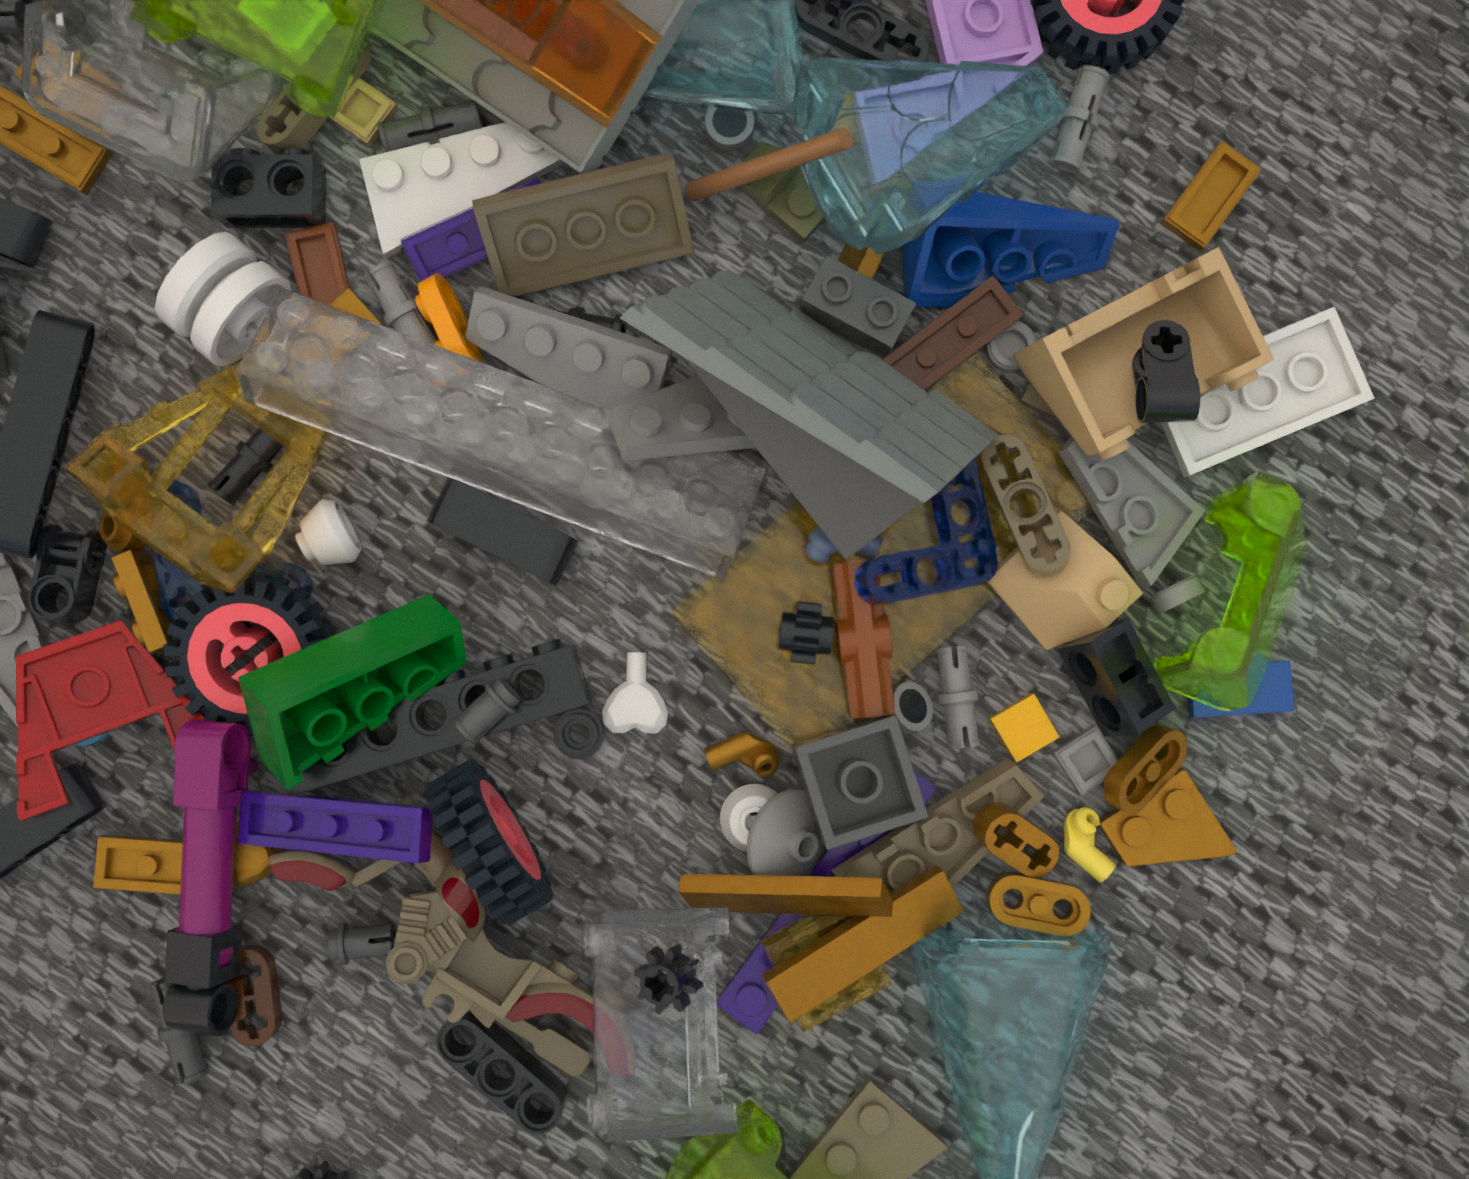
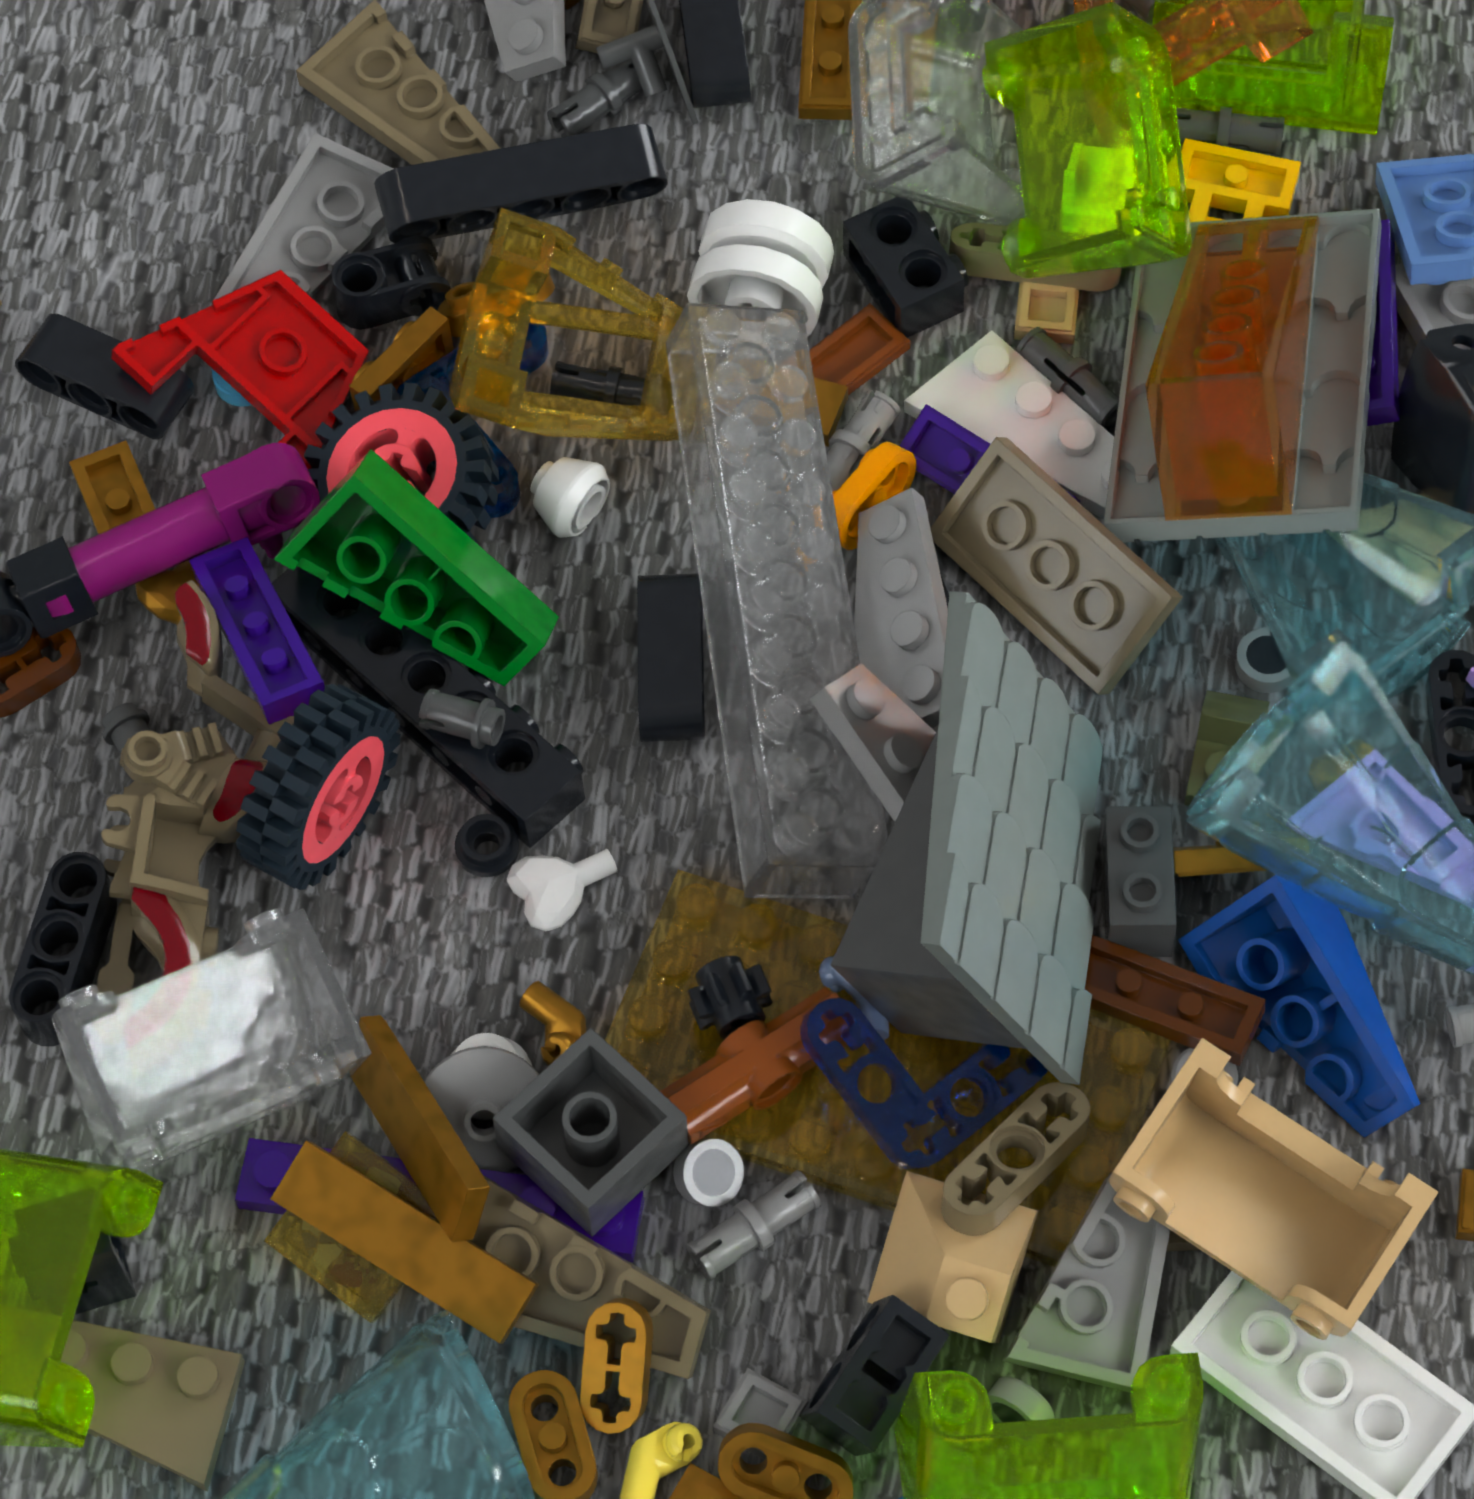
camera: 70 degrees right, 25 degrees down
(656, 984) = (258, 1036): black gear -> none
(770, 164) = (1228, 691): medium nougat bar -> none
(1023, 727) = (758, 1321): yellow tile -> none
(1165, 375) = (1257, 1222): black piece -> none

